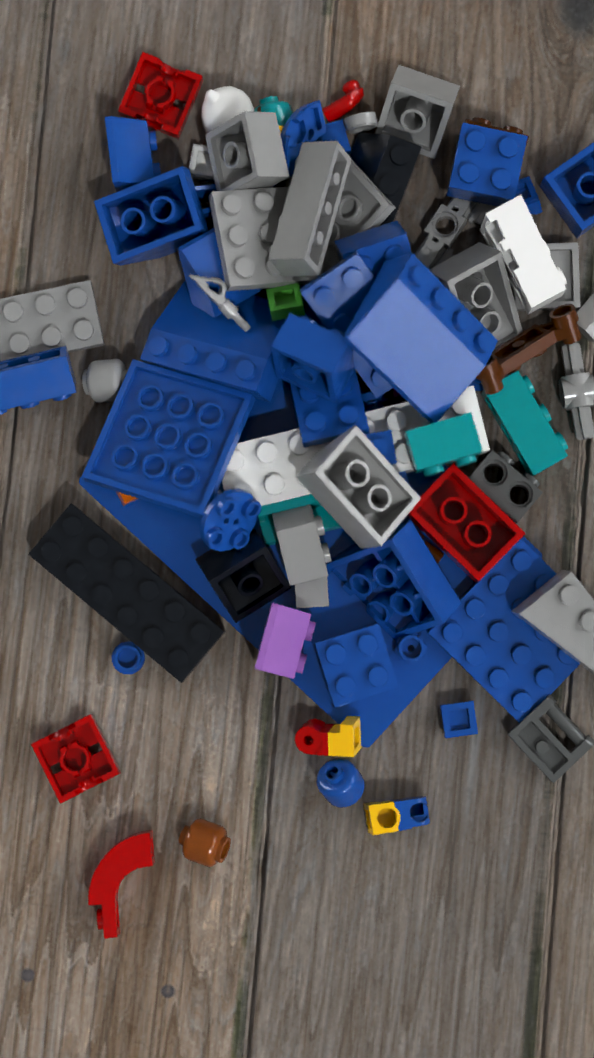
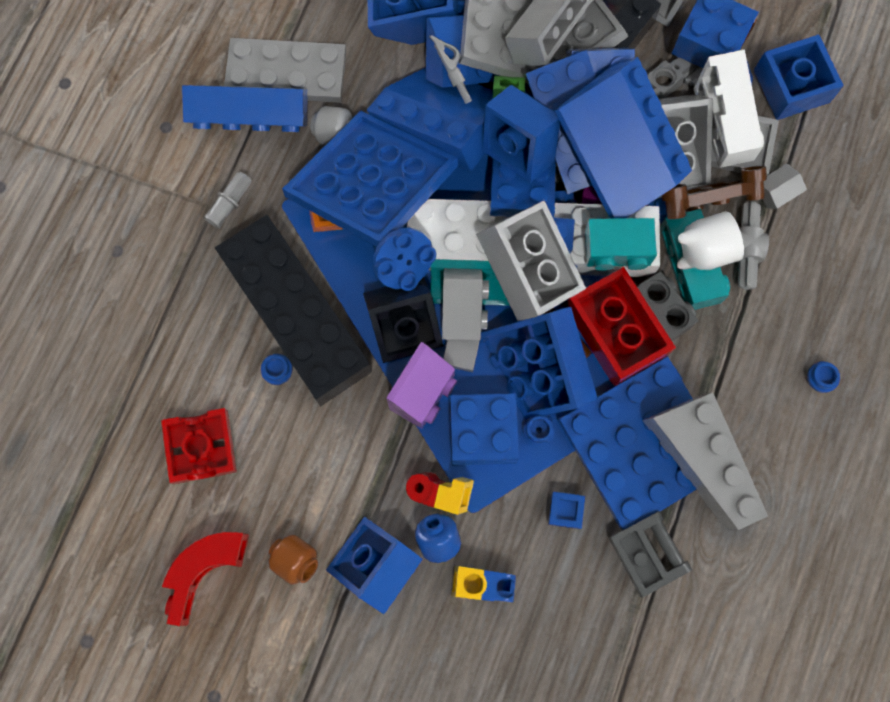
camera: 15 degrees right, 10 degrees down
(20, 491) = (228, 200): none -> light grey axle
(285, 825) = (374, 565): none -> blue slope
(534, 413) = (711, 243): none -> white piece

